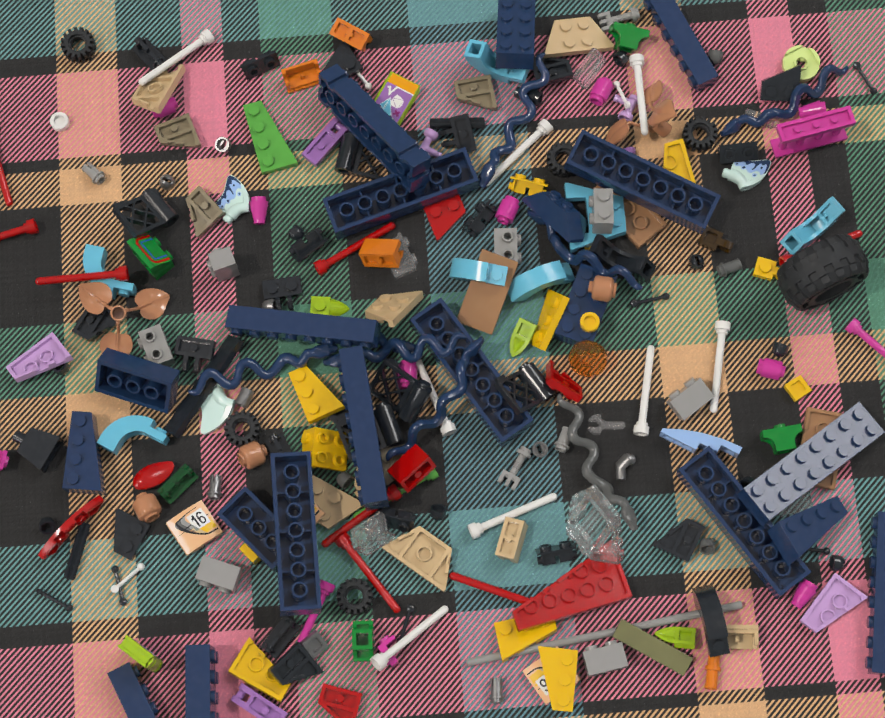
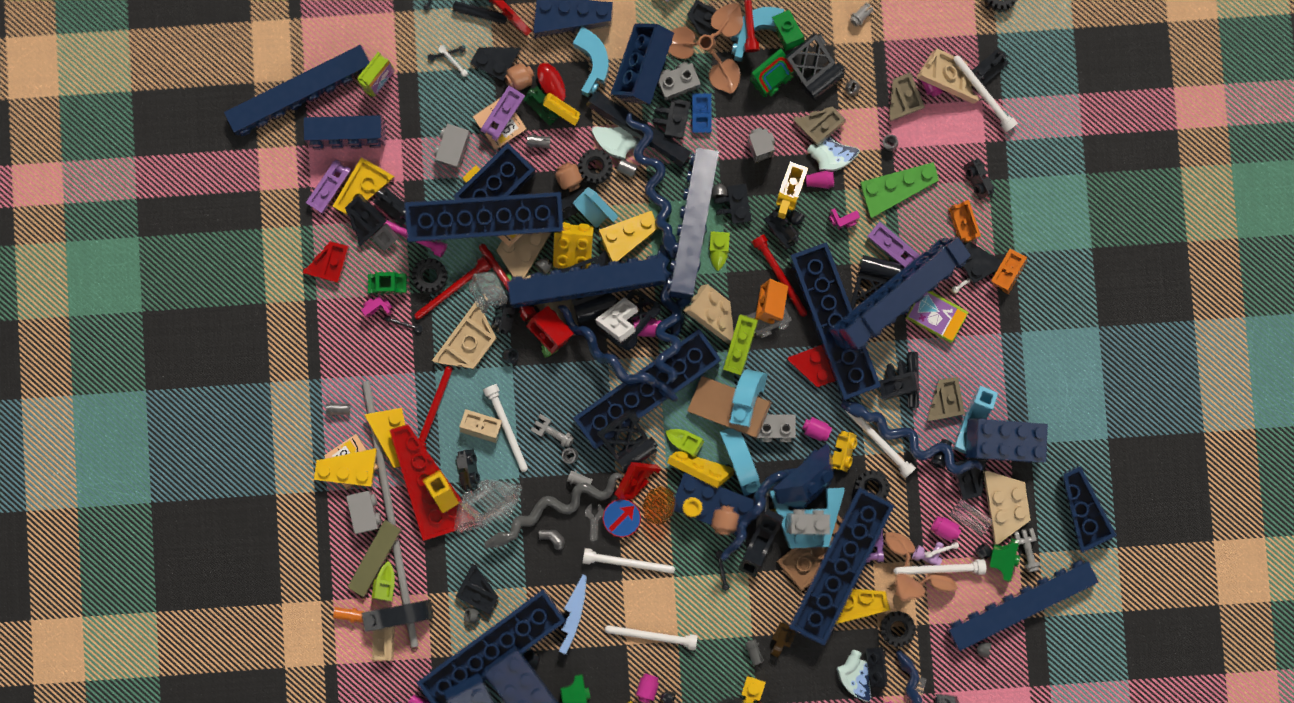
camera: 90 degrees right, 10 degrees up
(108, 237) = (787, 30): none -> green brick
(181, 462) = (561, 108): none -> yellow tile
(184, 521) = (503, 112): none -> medium lavender plate
(188, 325) = (701, 112): none -> blue slope
(268, 234) = (791, 188): none -> yellow hinge
(284, 426) = (594, 207): none -> medium azure panel
(300, 183) = (849, 220): none -> dark pink bracket
(380, 660) = (365, 299): white piece -> none
(401, 400) = (615, 319): none -> white plate
(424, 282) = (740, 344): none -> lime plate
(430, 135) = (885, 347): lavender piece -> none
(447, 427) = (593, 366): white piece -> none
(483, 211) = (817, 403): black hinge -> none
(580, 575) = (441, 491): none -> yellow slope
(601, 396) = (621, 518): none -> blue piece
(689, 398) = (617, 605): light grey brick -> none
(693, 264) = (759, 615): black hinge -> none

